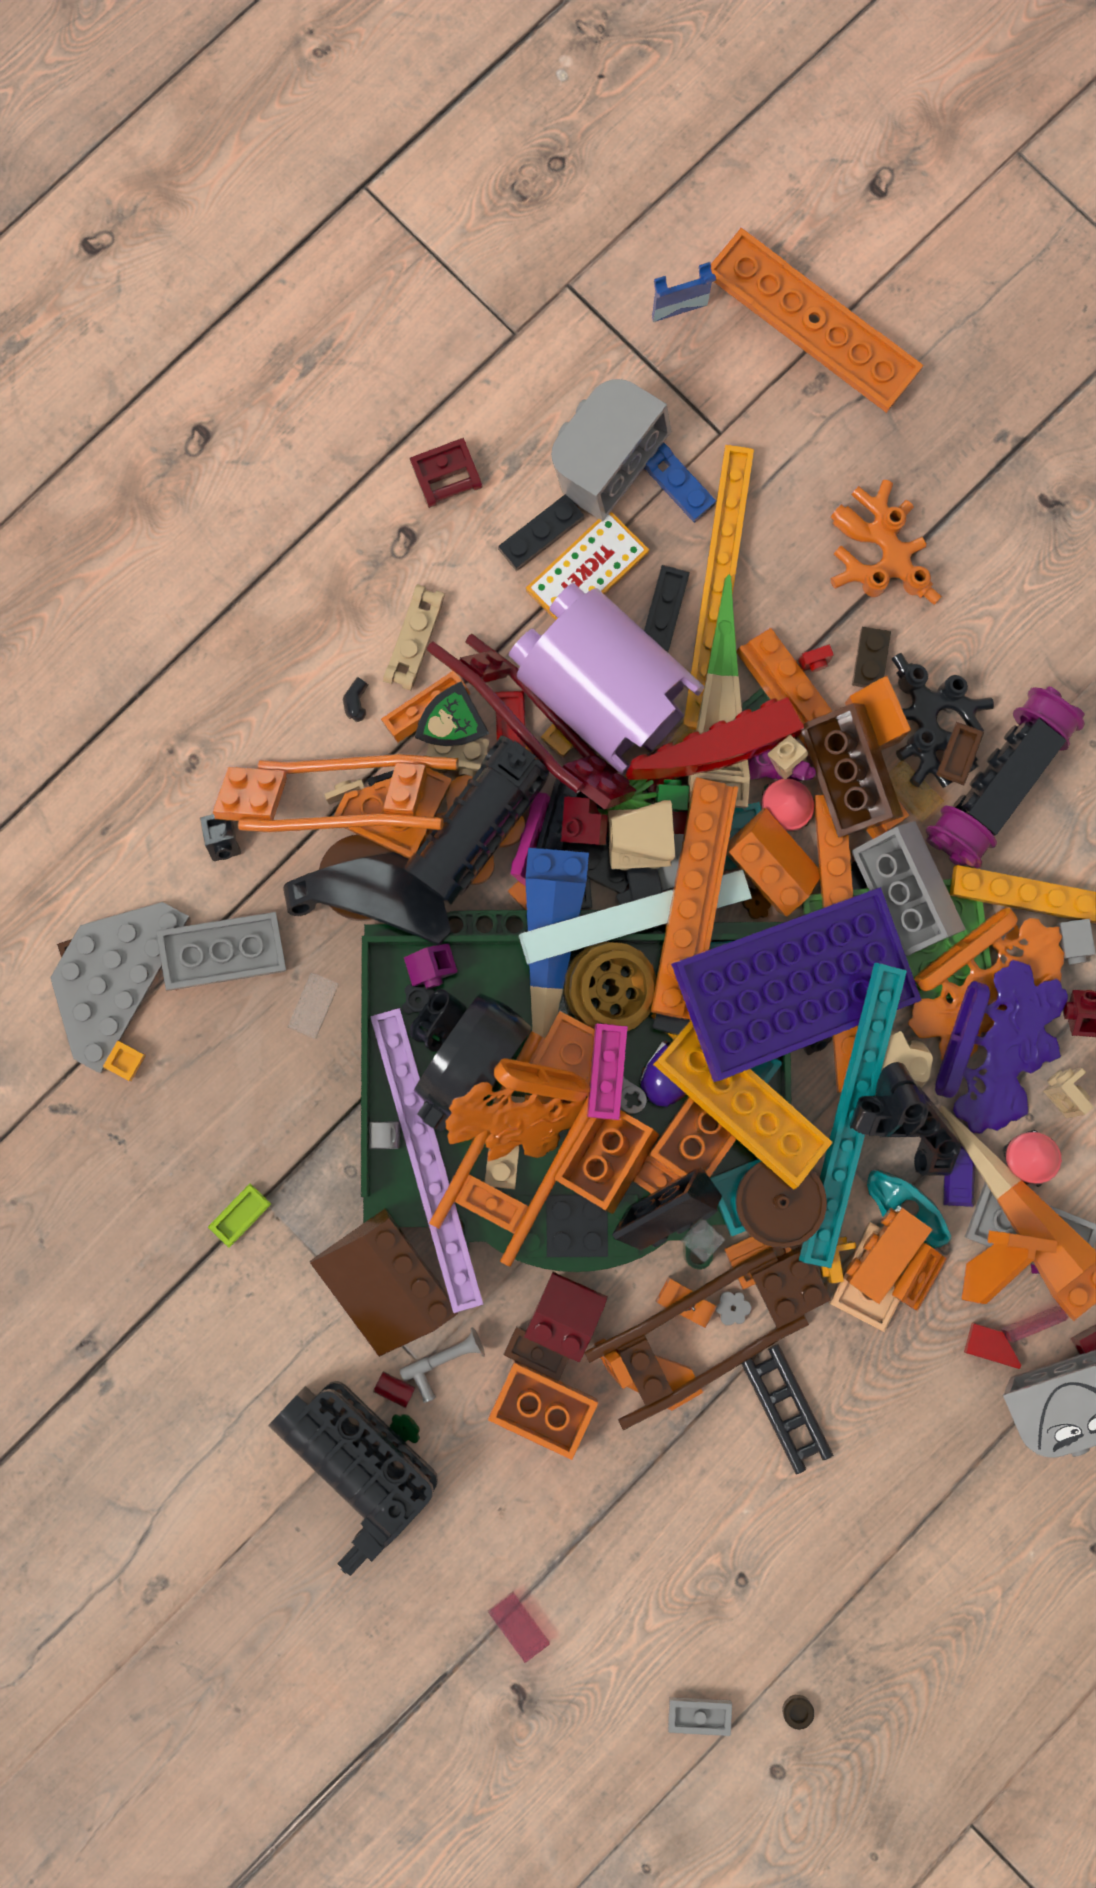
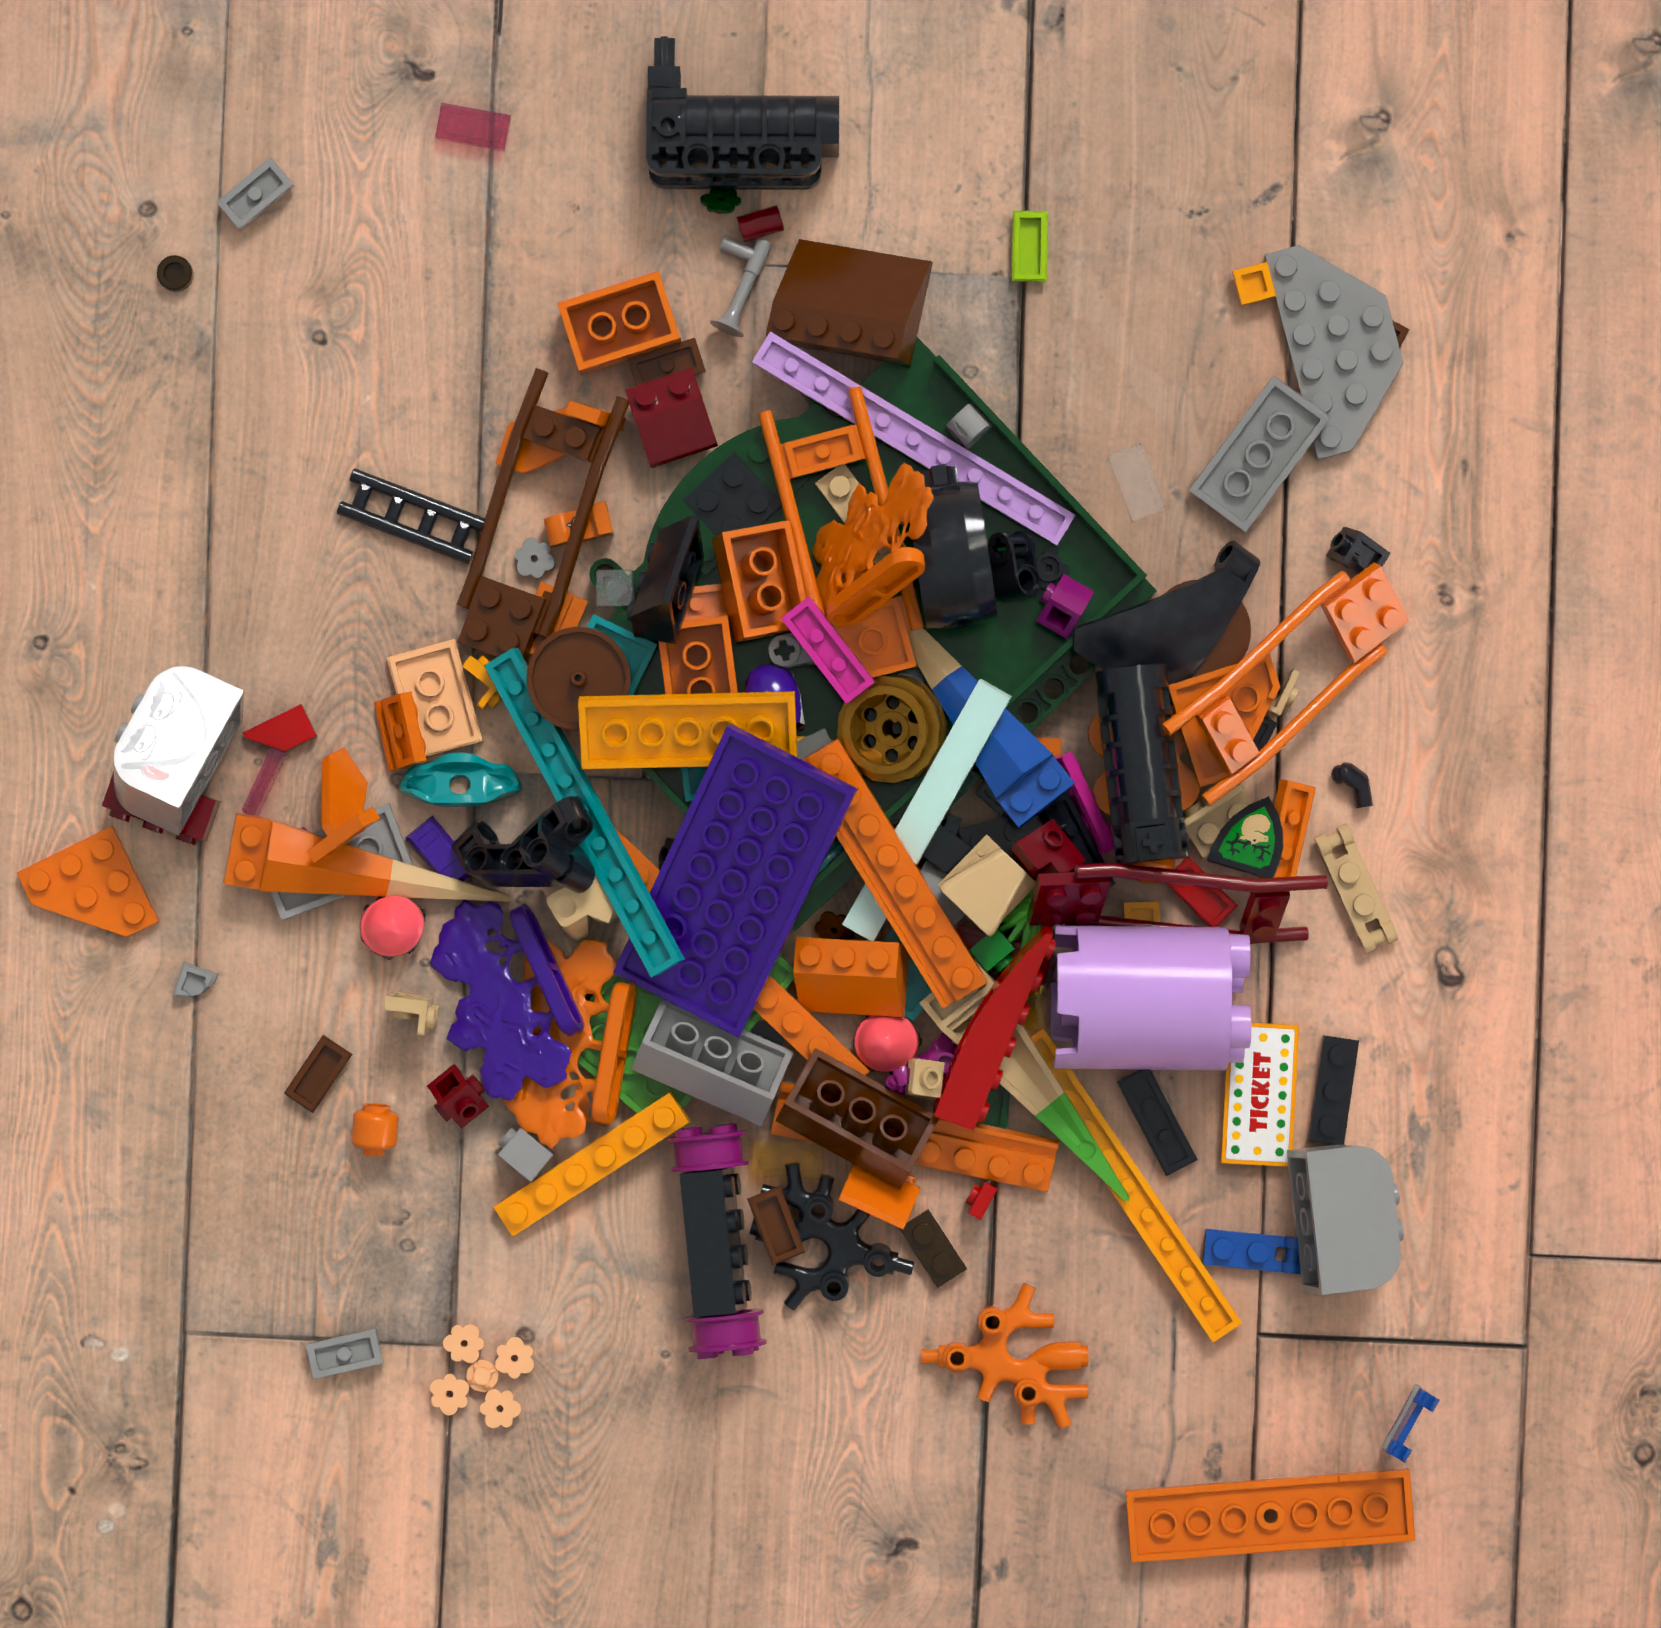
camera: 140 degrees right, 5 degrees up
(444, 463) = (1479, 1069): dark red plate -> none
(887, 1253) = (446, 724): orange brick -> none

